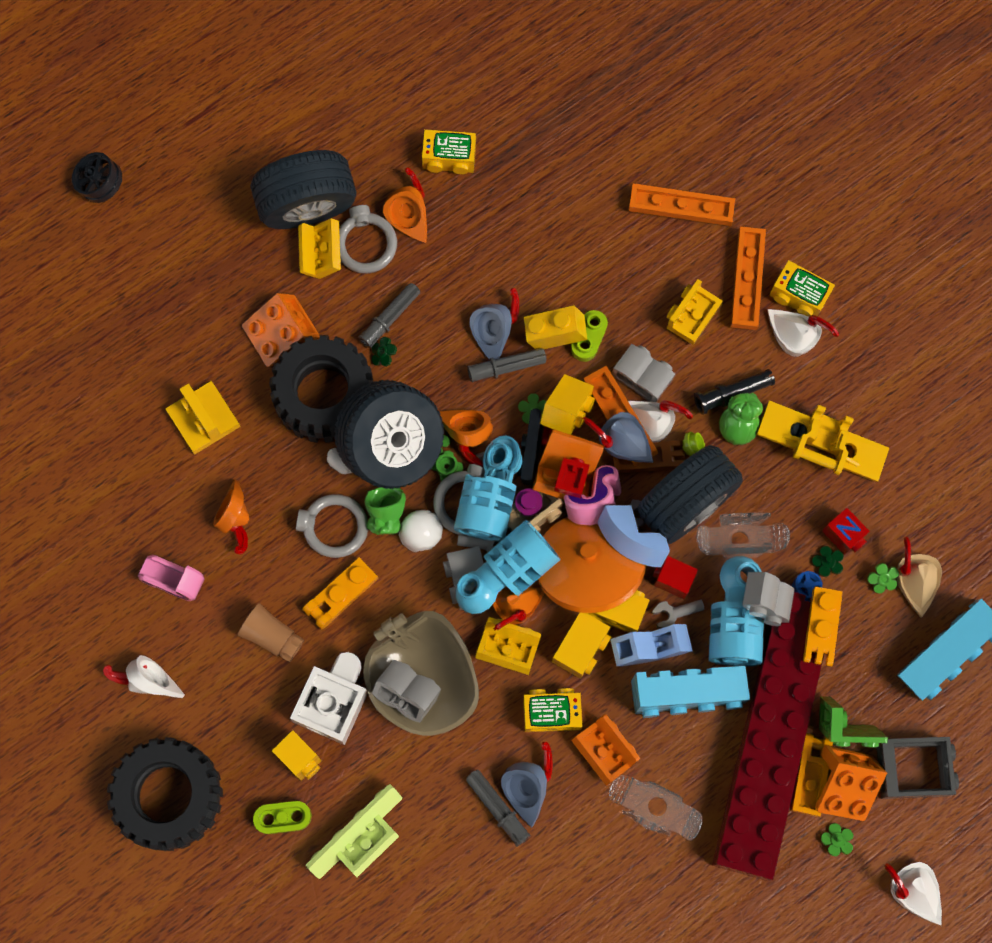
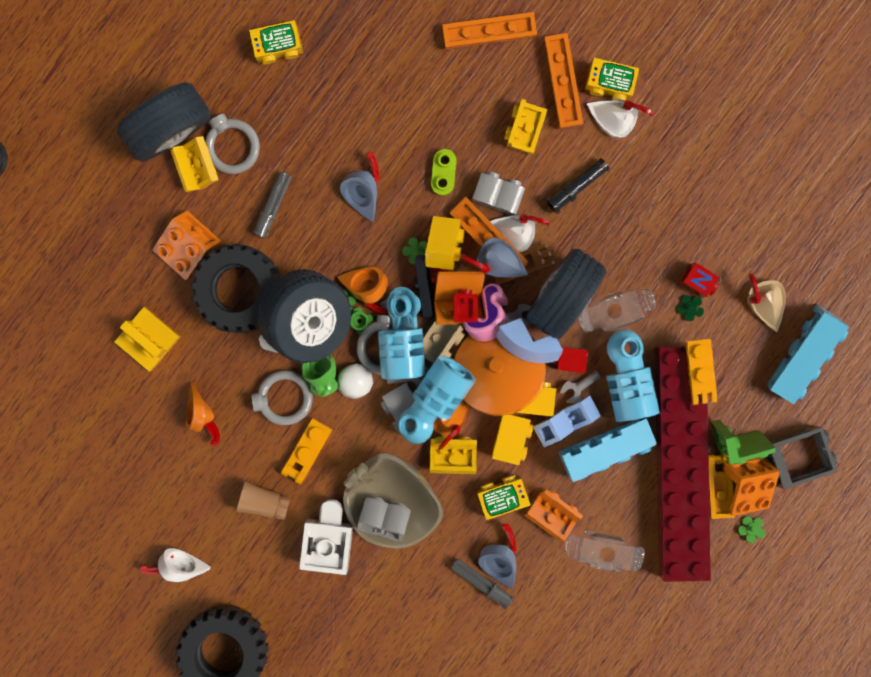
camera: 15 degrees left, 15 degrees up
(171, 577) = (168, 481): bright pink animal -> none
(282, 816) = (319, 640): lime plate -> none
(297, 756) = (315, 594): yellow brick -> none
(361, 838) = (385, 638): yellowish green bracket -> none
(383, 352) = (276, 238): dark green plant -> none
(407, 210) = (256, 106): orange piece -> none
(506, 364) = (382, 219): dark grey axle -> none
(528, 502) = (435, 335): magenta plate -> none
(555, 328) = (414, 178): yellow brick -> none
(693, 443) = (556, 243): lime plate -> none
(740, 420) = (589, 209): bright green hair -> none
(768, 598) = (652, 365): light grey brick -> none
(808, 581) = (682, 332): blue wheel -> none
(825, 433) = (665, 200): yellow piece -> none
(883, 578) = (738, 309): bright green plant -> none
(917, 891) = (822, 550): white piece -> none

